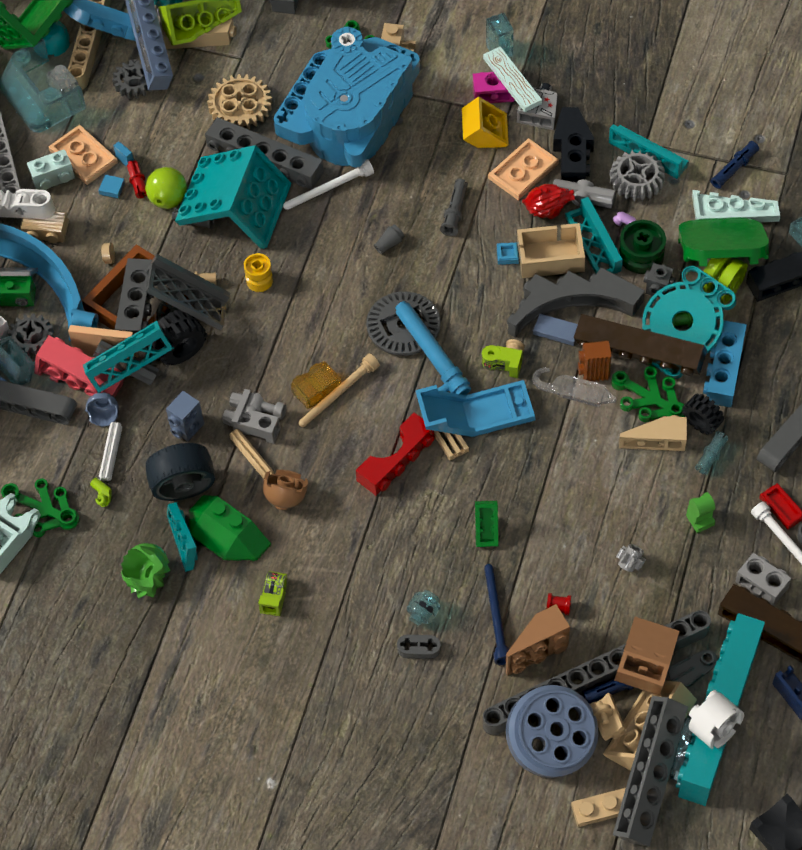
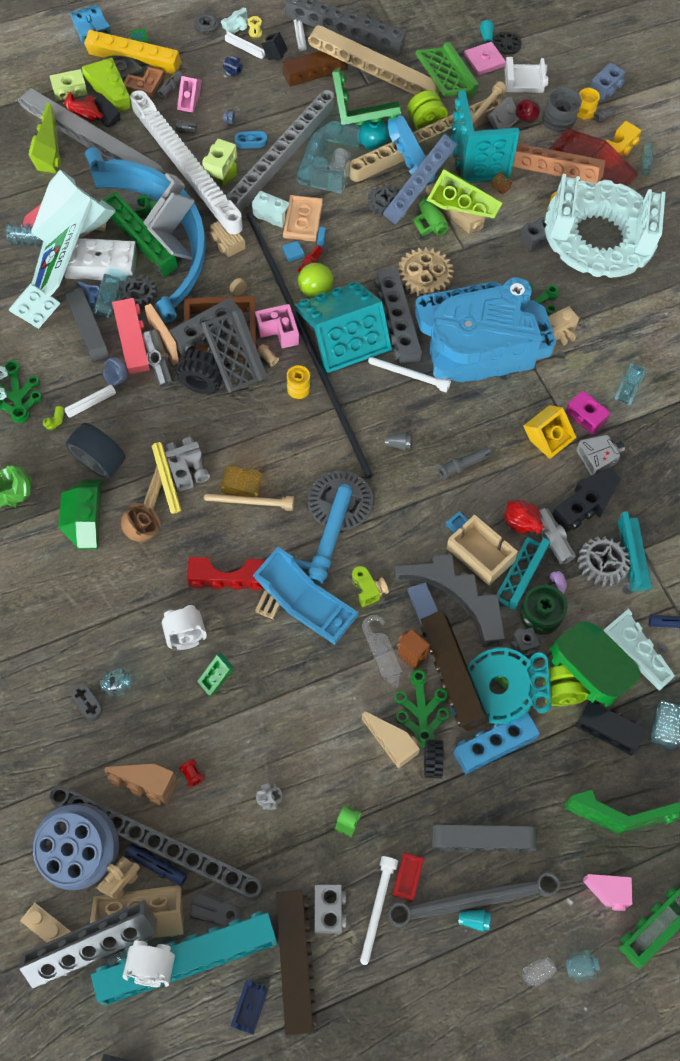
camera: 45 degrees right, 5 degrees up
(124, 350) = (151, 348): teal fence -> none
(182, 536) = (45, 502): teal wing -> none
(185, 416) = (144, 422): sand blue brick -> none
(186, 243) = (278, 321): none -> bright pink brick
(190, 56) = (433, 216): none -> bright green piece
(226, 241) = (326, 382): none -> black piece
(256, 438) = (166, 478): none -> light yellow axle
(273, 593) = (57, 577): lime leg -> none
(420, 519) = (183, 628): none -> white brick
(501, 649) = (124, 761): dark blue piece -> none
(512, 79) = (601, 418): light aqua tile -> none
(523, 169) = (539, 482): light nougat tile -> none
(647, 655) = (184, 869): medium nougat slope -> none
(711, 452) = (409, 789): clear light blue pin -> none

